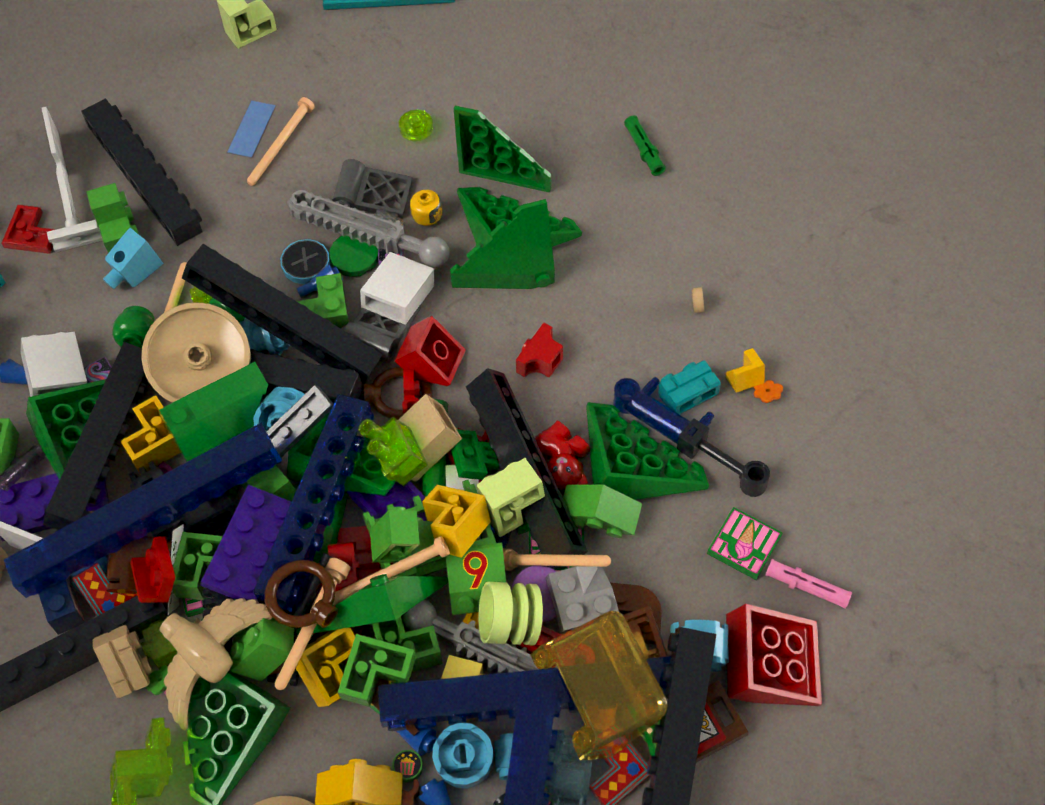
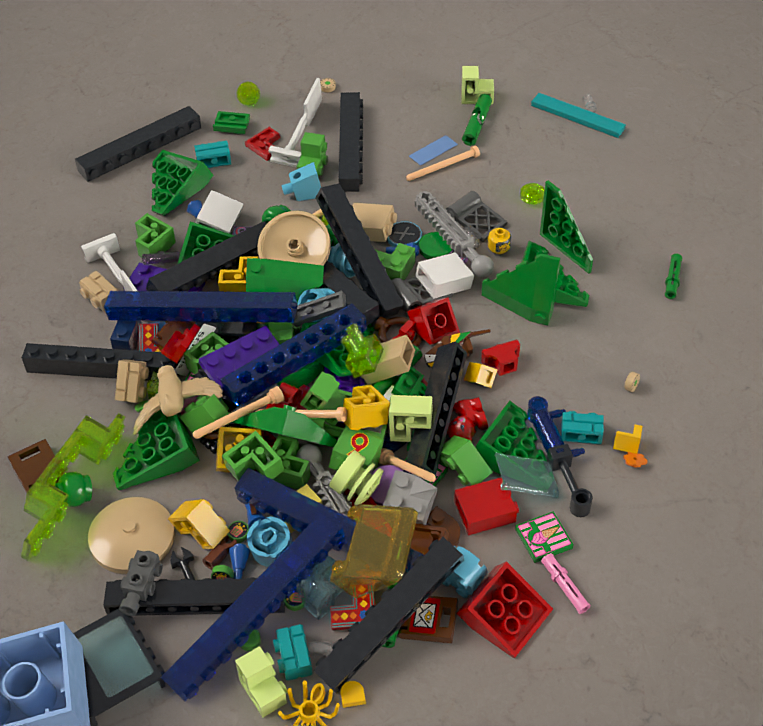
camera: 35 degrees right, 10 degrees down
(52, 104) = (328, 85): none -> tan tile
(263, 259) = (376, 220): none -> tan brick
(277, 61) = (476, 120): none -> green piece
(322, 612) = (247, 408): reddish brown piece -> none
(473, 368) = (462, 339): none -> reddish brown animal
(532, 389) = (480, 374): none -> yellow panel
(660, 548) = (485, 506): none -> red brick
(679, 483) = (527, 475): none -> clear light blue piece

